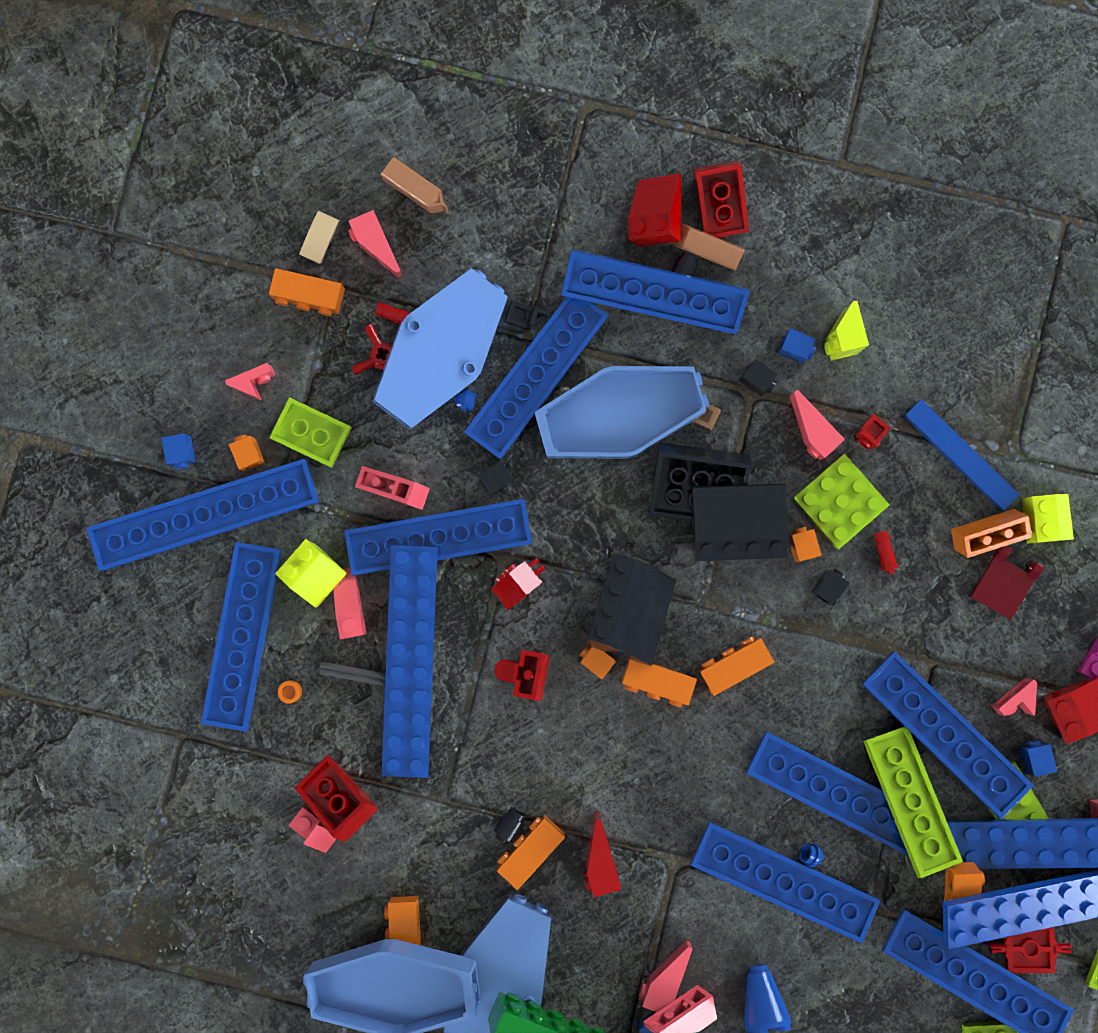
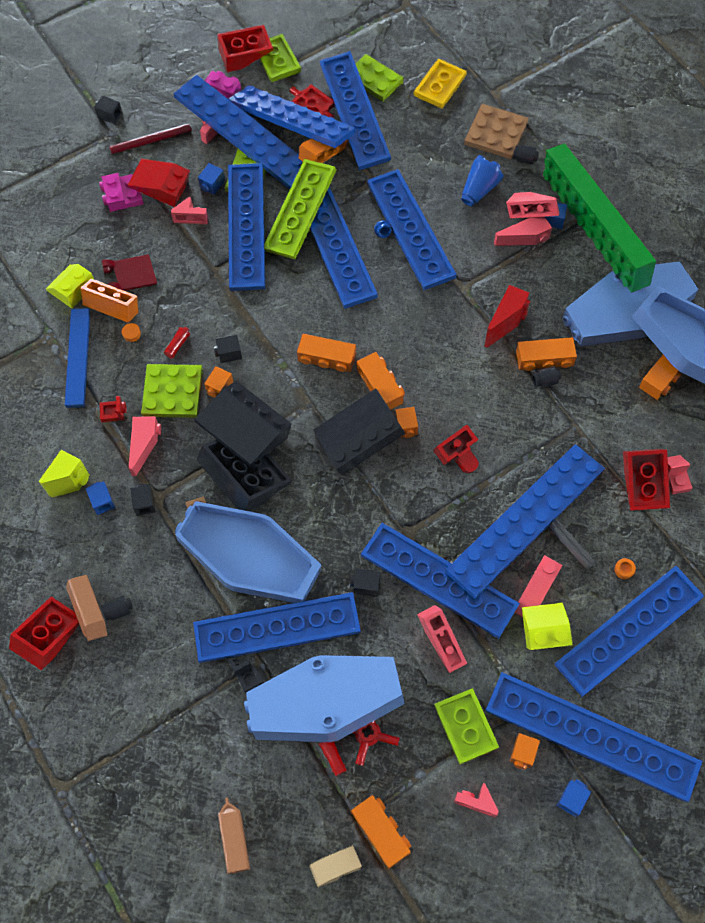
camera: 135 degrees left, 20 degrees down
(372, 240) = (298, 829): coral slope -> none
(465, 400) = (339, 649): blue plate -> none
(517, 583) = (413, 501): red brick -> none
(654, 291) = (151, 608): blue plate -> none
(656, 211) = (92, 662): red slope -> none
(939, 523) = (131, 332): none -> orange tile

